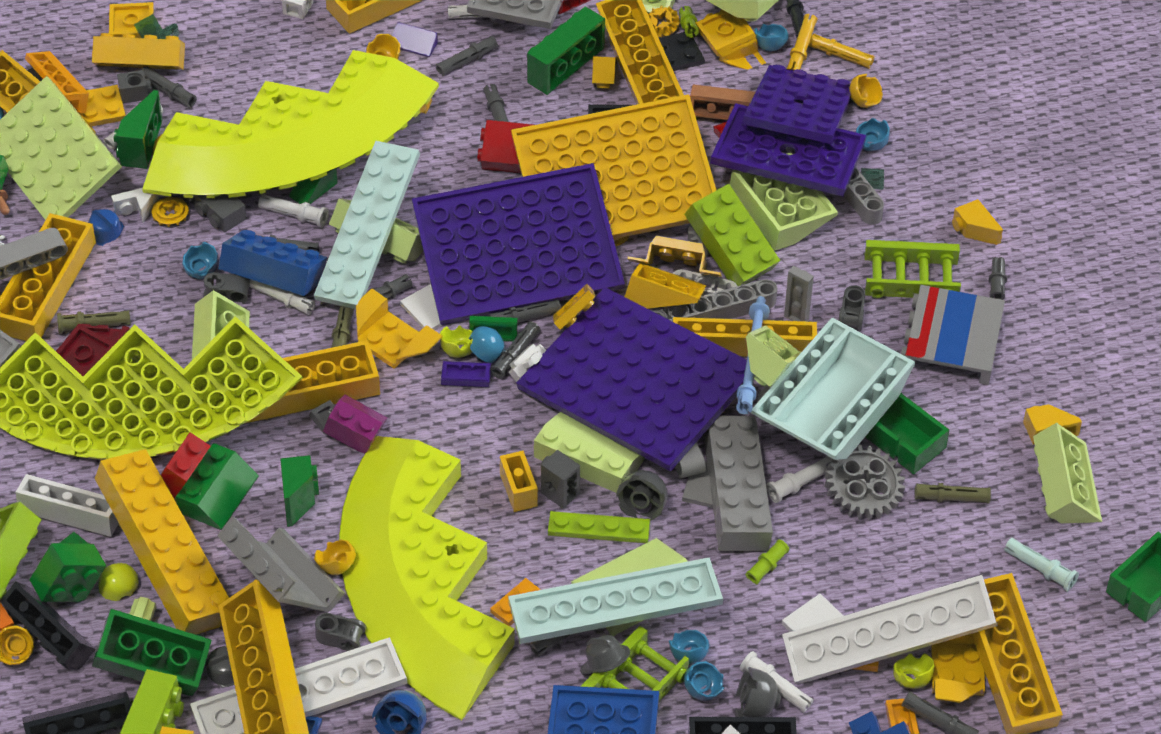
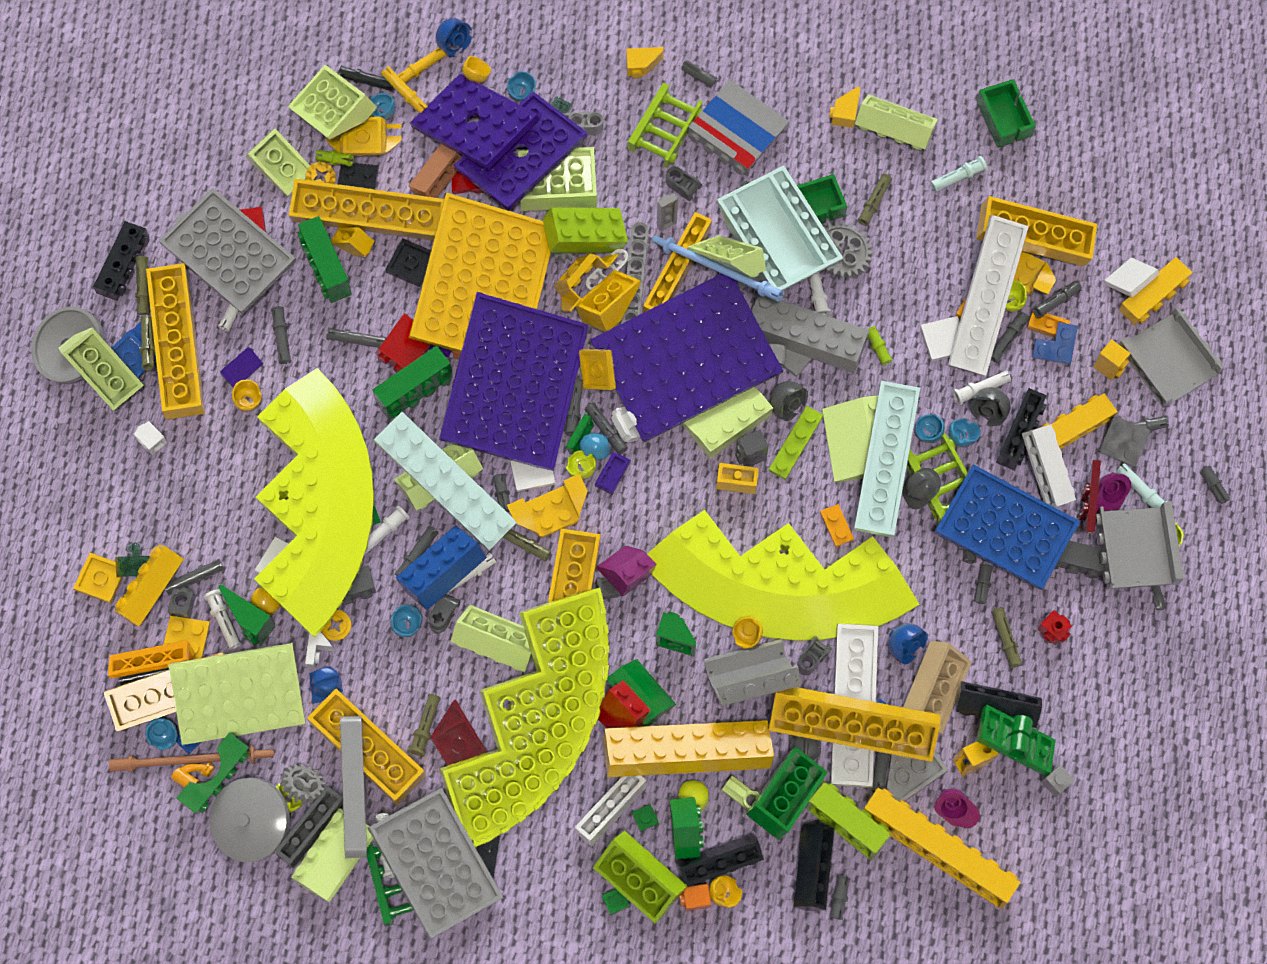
camera: 65 degrees left, 20 degrees up
(463, 162) = (413, 383): none -> green brick
(859, 688) = (1013, 331): none -> dark grey pin
(890, 55) = (453, 32): none -> blue cylinder

